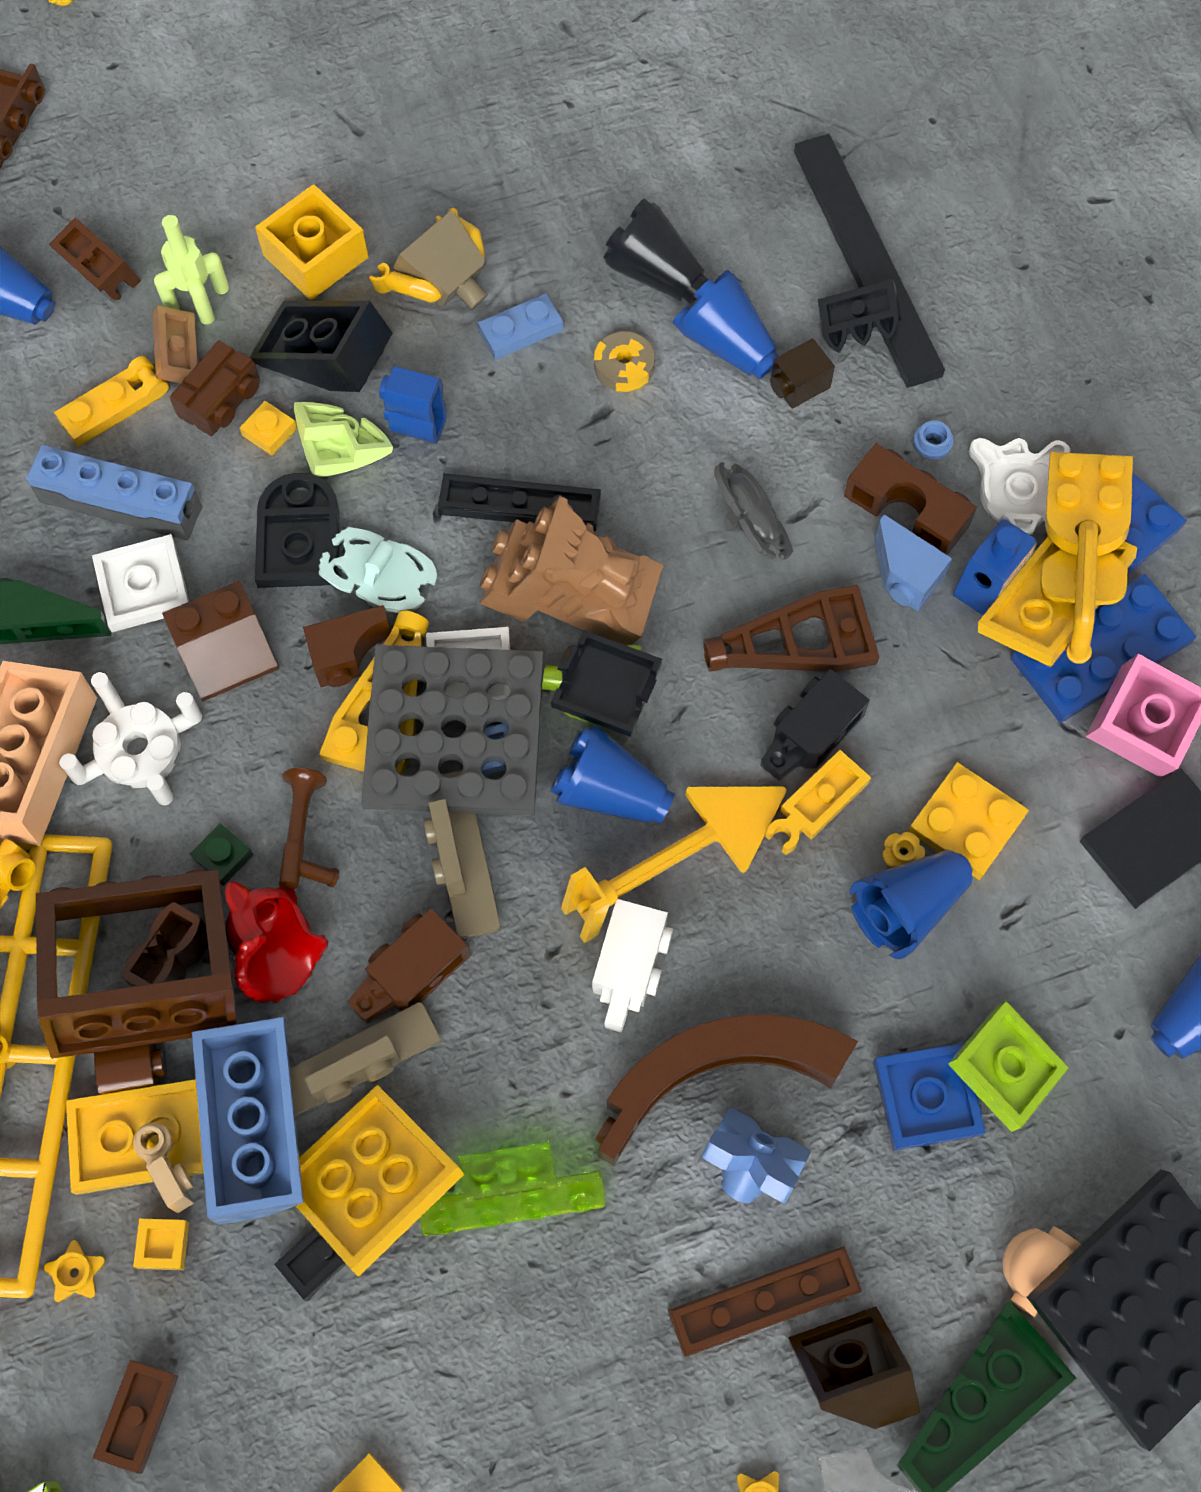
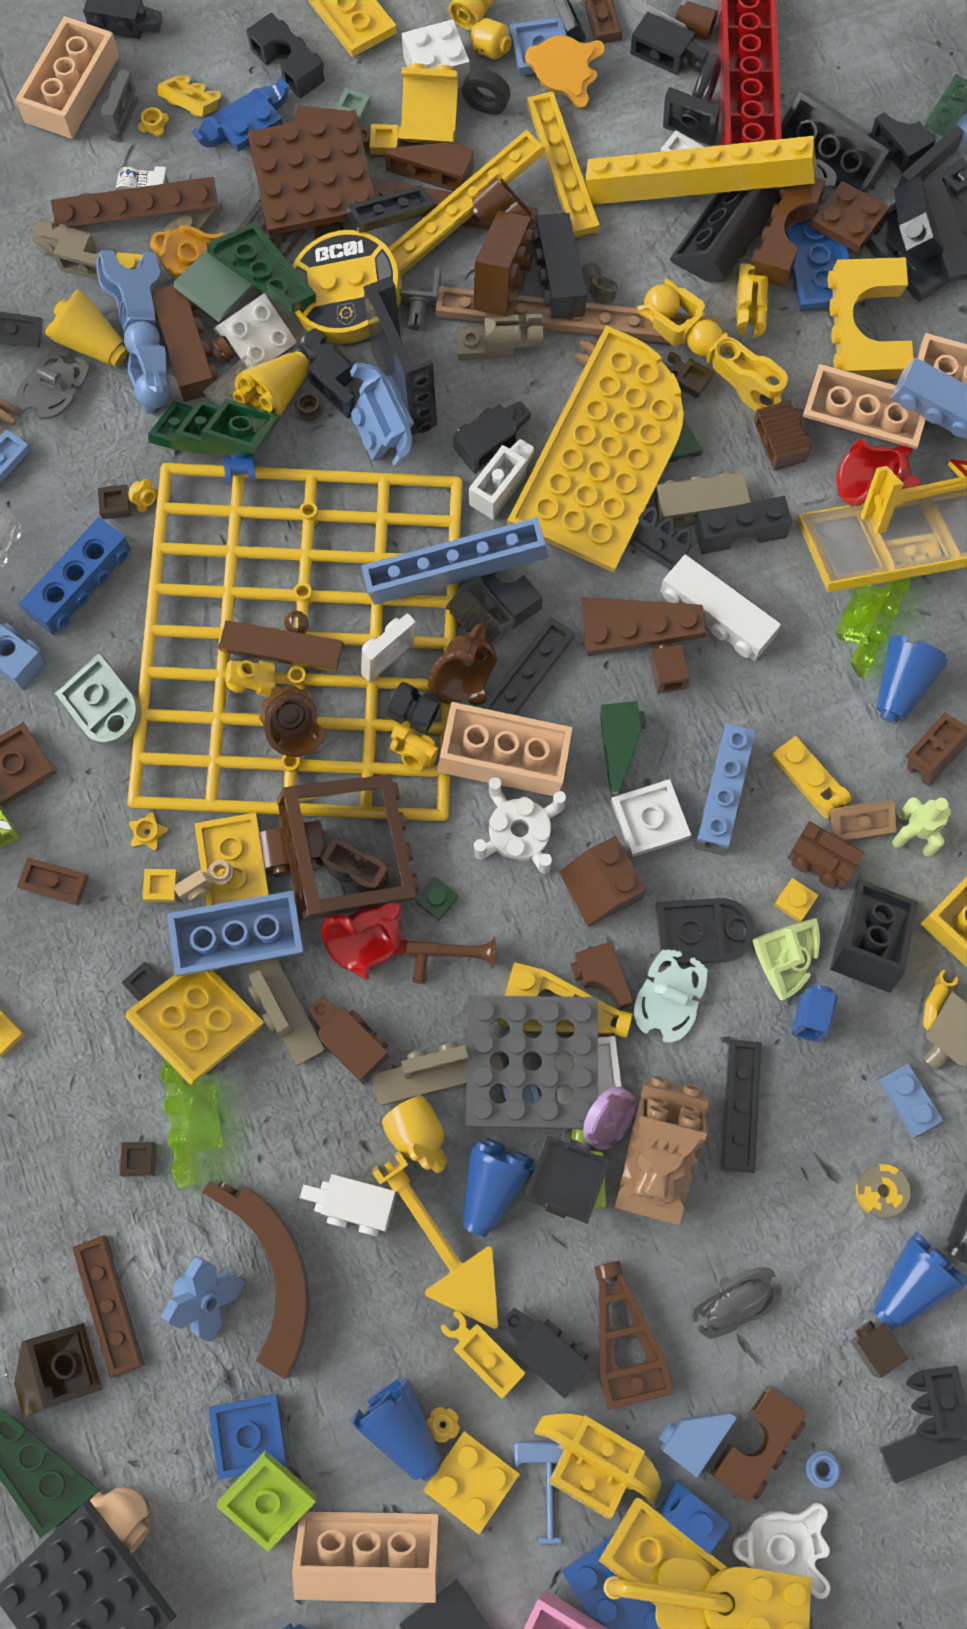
camera: 90 degrees right, 5 degrees up
(529, 636) = (609, 1118): none -> lavender tile
(538, 871) = (417, 1133): none -> yellow piece
(562, 1266) = (138, 1159): none -> dark brown tile
(931, 731) = (541, 1453): none -> medium blue piece
(939, 673) = (597, 1463): none -> yellow plate
(1065, 942) = (366, 1557): none -> light nougat slope

